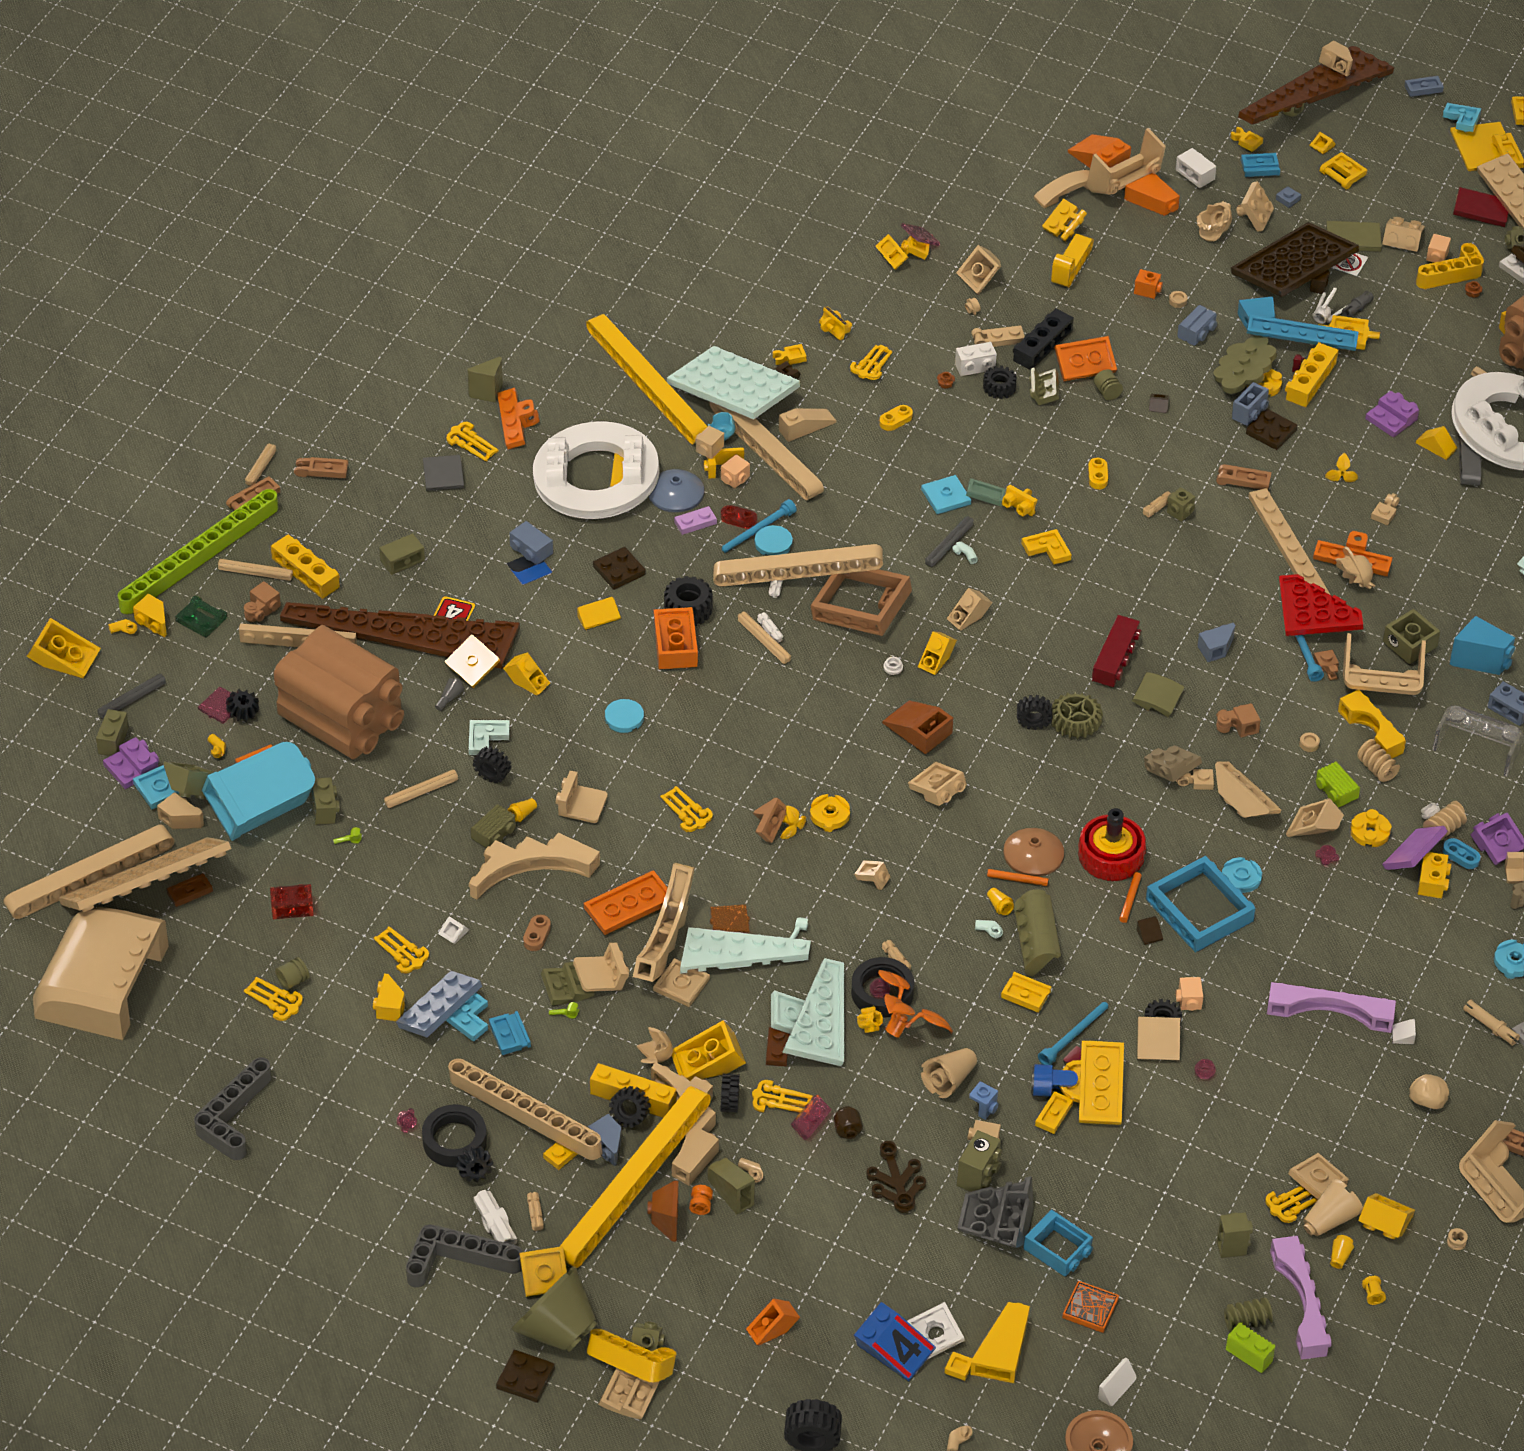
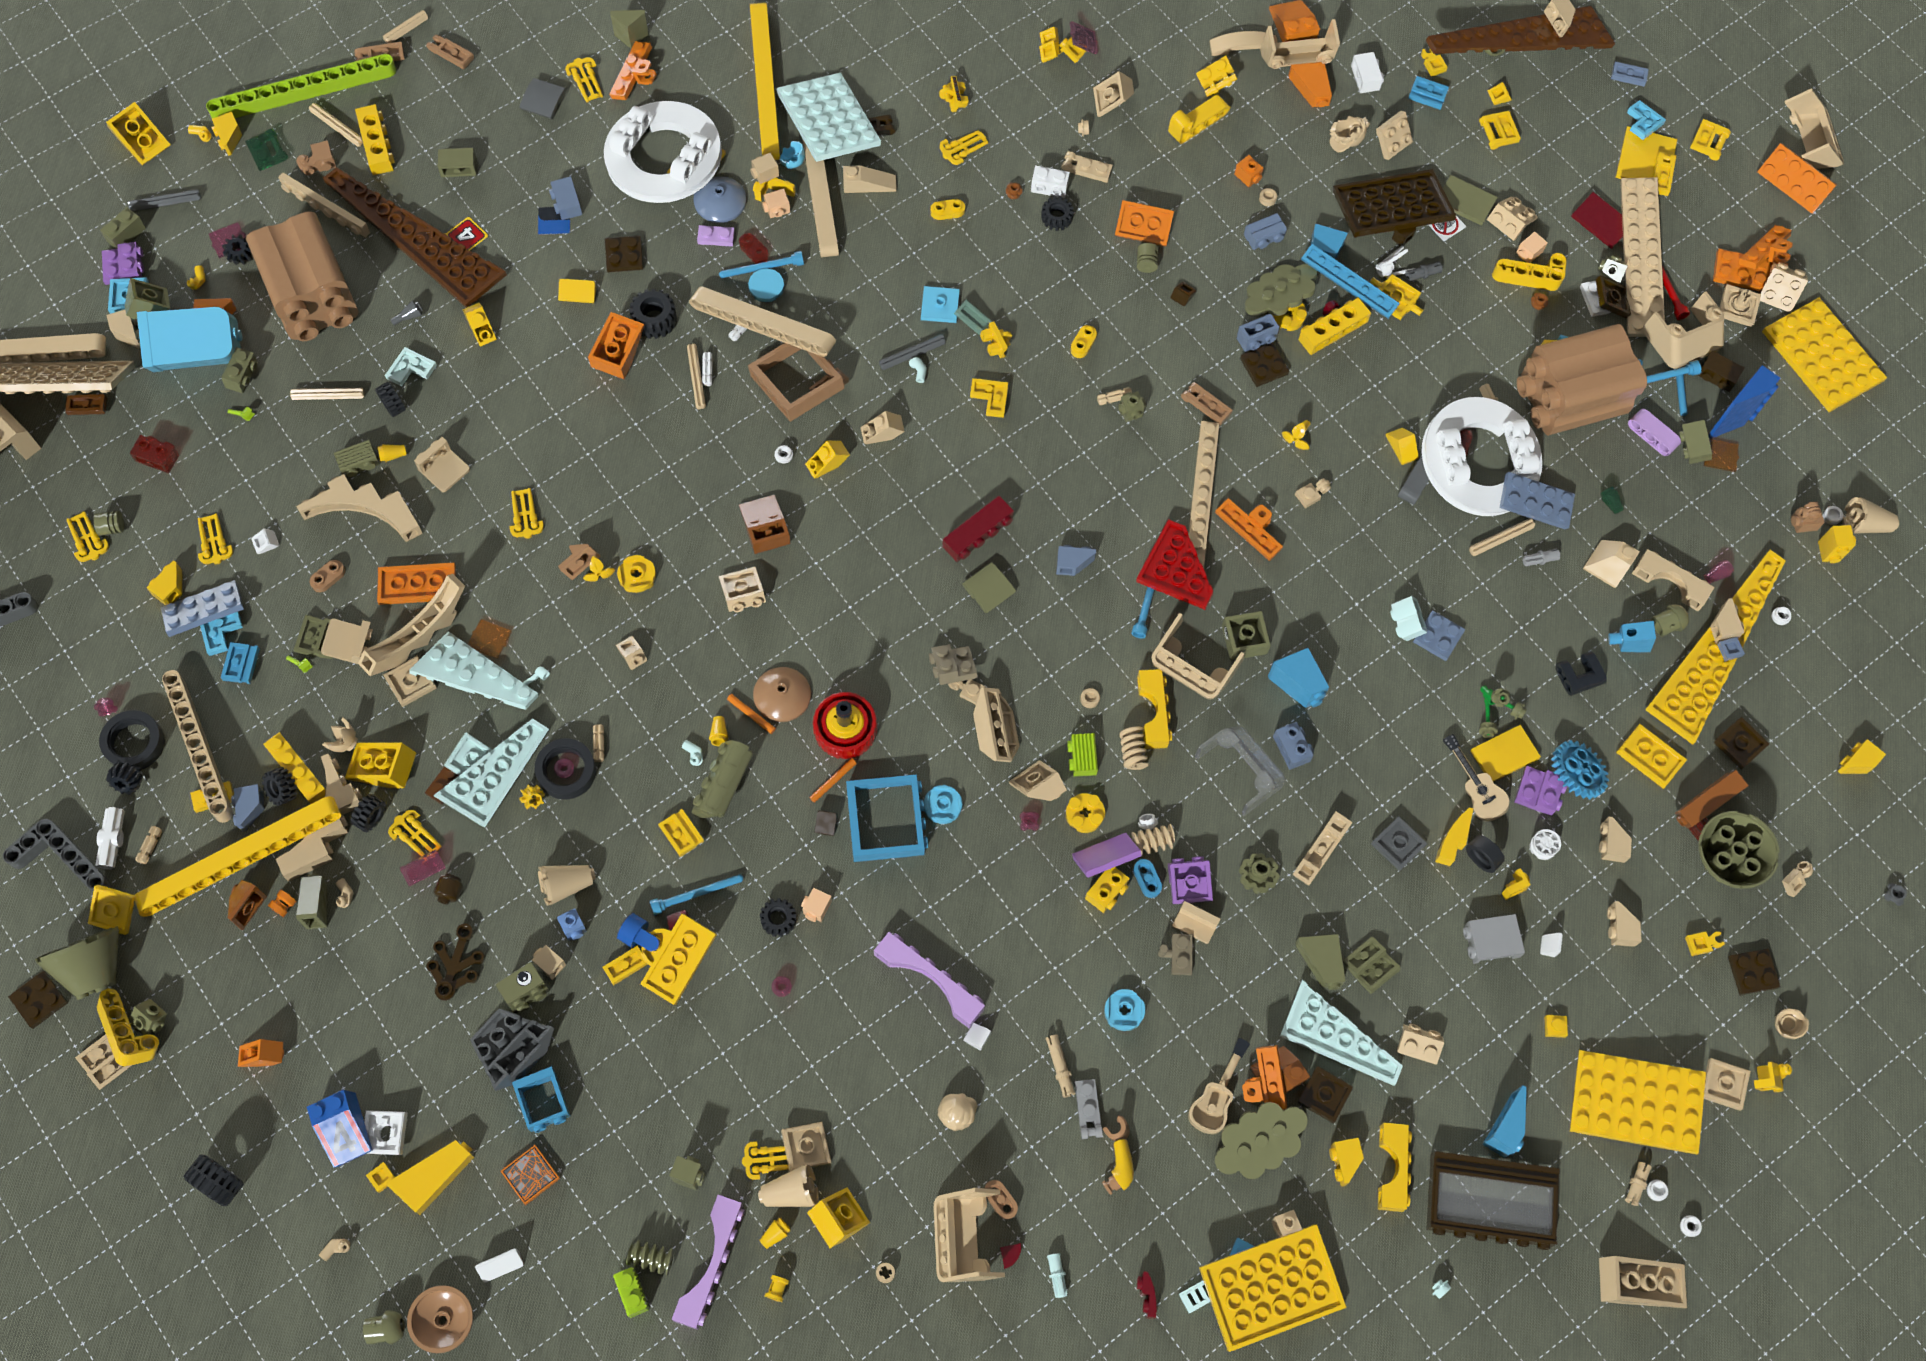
camera: 25 degrees right, 20 degrees up
(472, 661) = (442, 291): plate -> none
(624, 715) = (533, 399): medium azure tile -> none
(792, 354) = (899, 110): yellow plate -> none
(898, 1008) = (539, 806): orange plant -> none
(1034, 704) = (866, 559): black tyre -> none
(1043, 339) = (1122, 187): black brick -> none
(1044, 386) = (1091, 234): olive bracket -> none
(1076, 715) = (914, 568): olive gear -> none
(1158, 1038) = (758, 938): tan tile -> none
(1243, 718) = (1044, 646): medium nougat brick -> none
(1288, 197) = (1433, 135): sand blue plate -> none
(1328, 663) = (1158, 624): medium nougat plate -> none
(1356, 568) = (1241, 544): tan hair -> none
(1393, 413) = (1382, 398): medium lavender plate -> none

